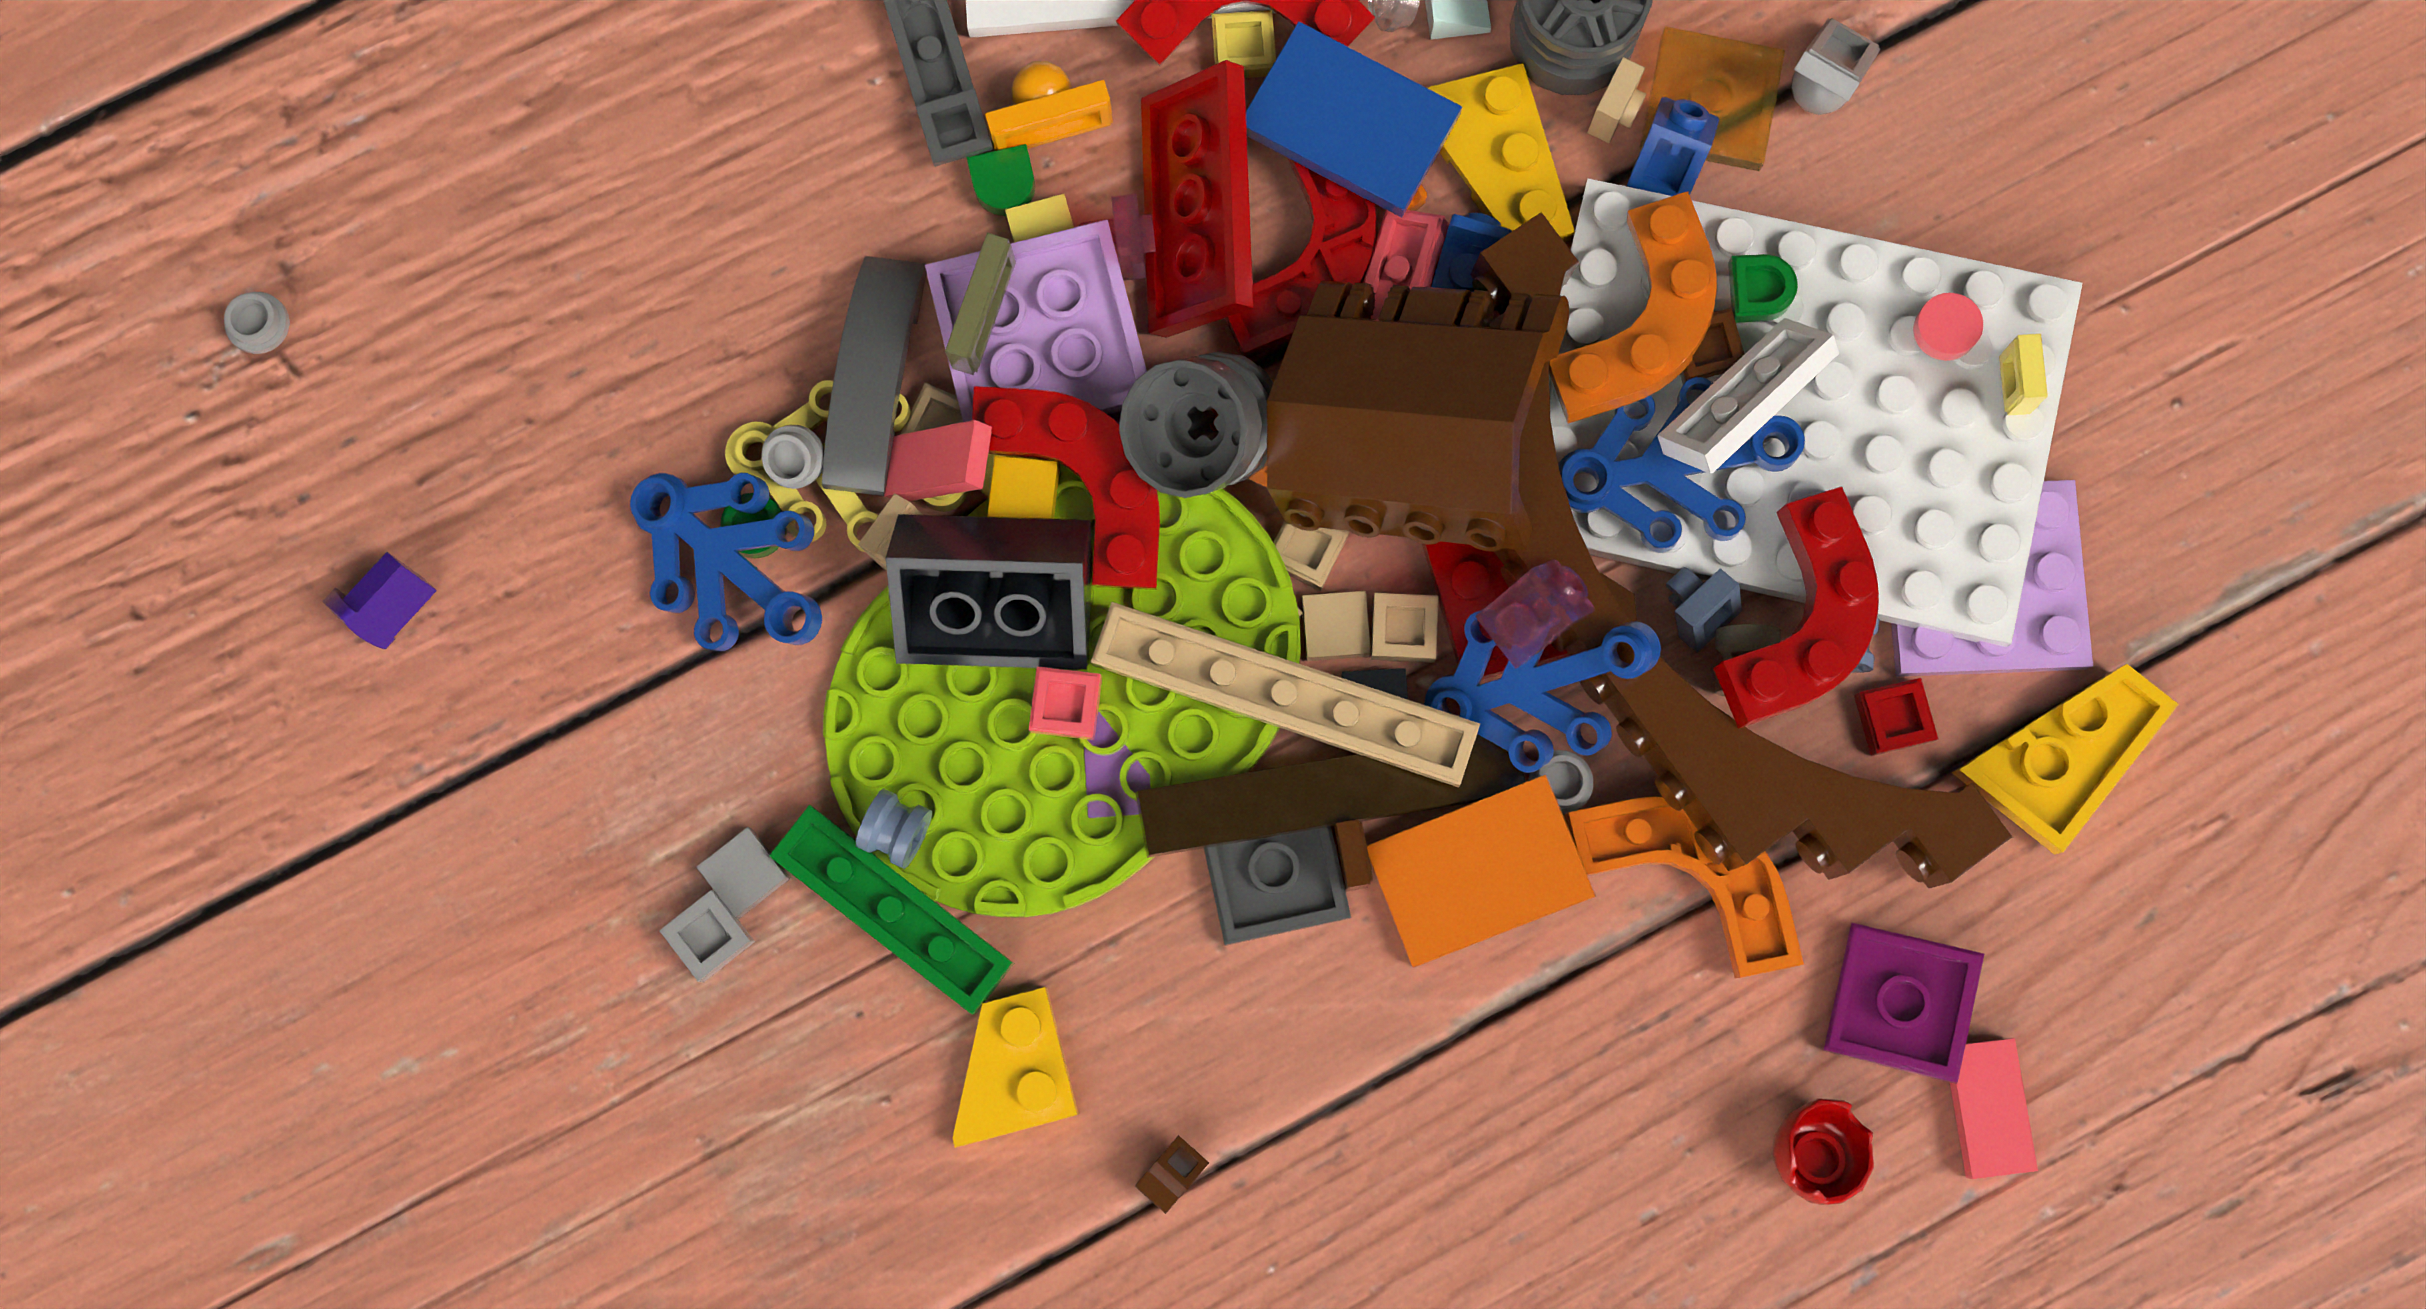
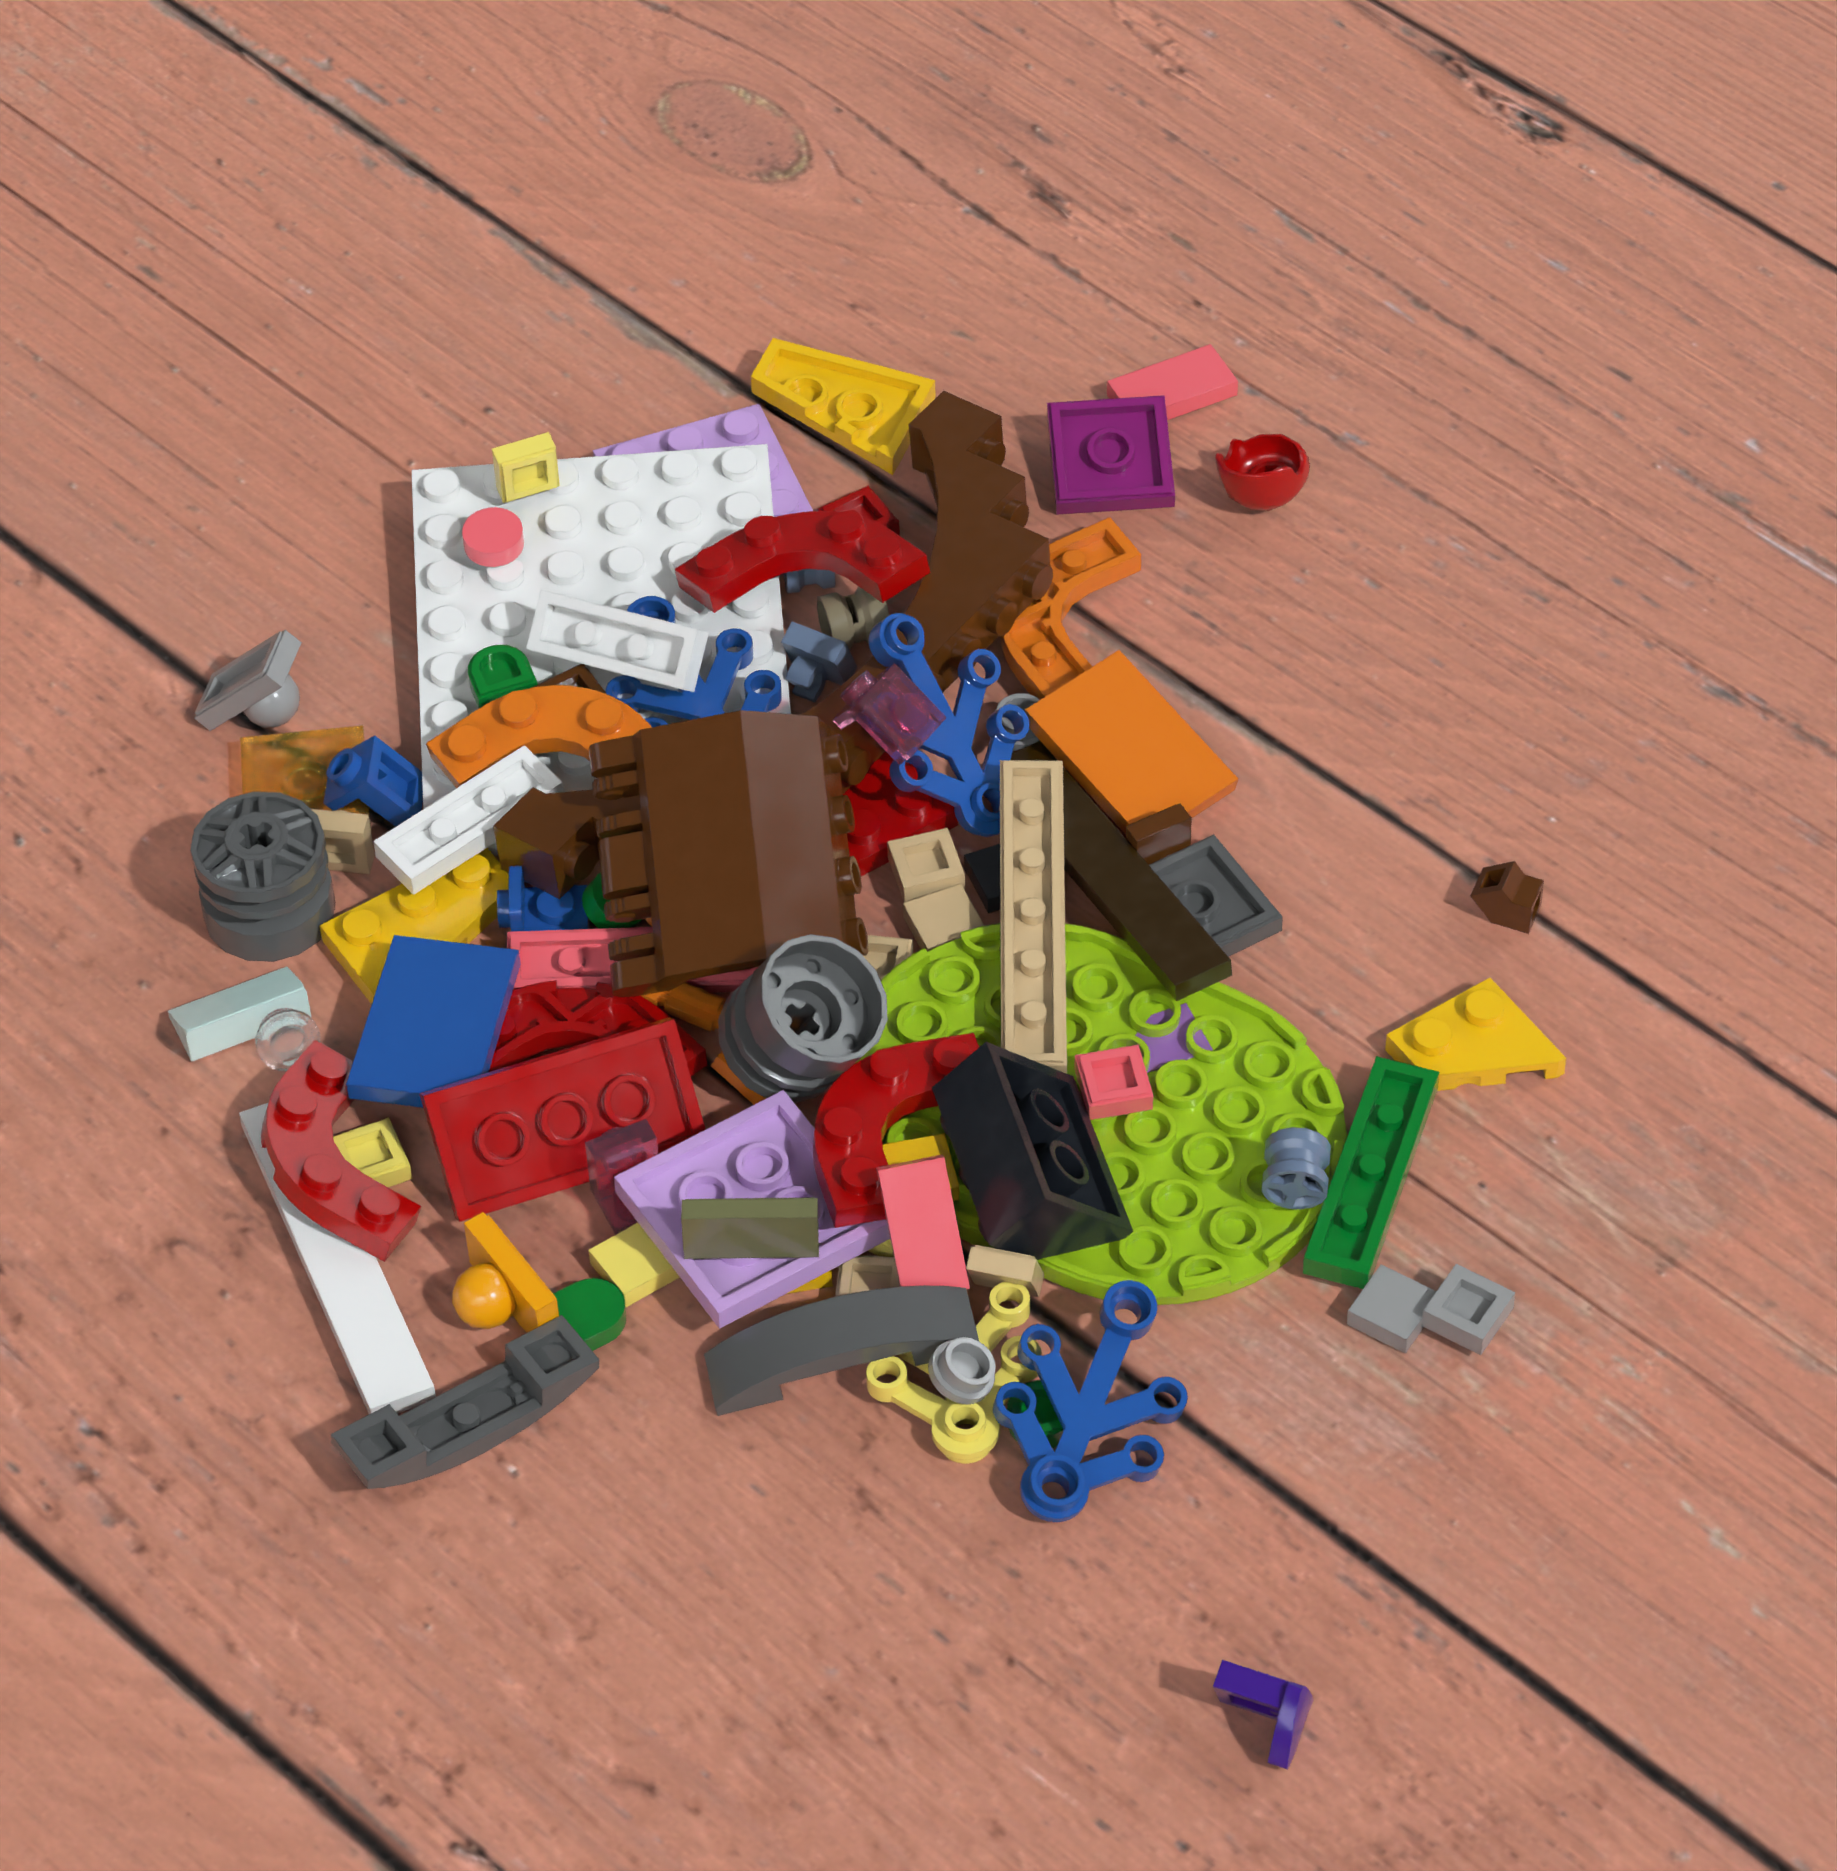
camera: 110 degrees left, 30 degrees down
(1581, 207) = (461, 820): none -> white plate

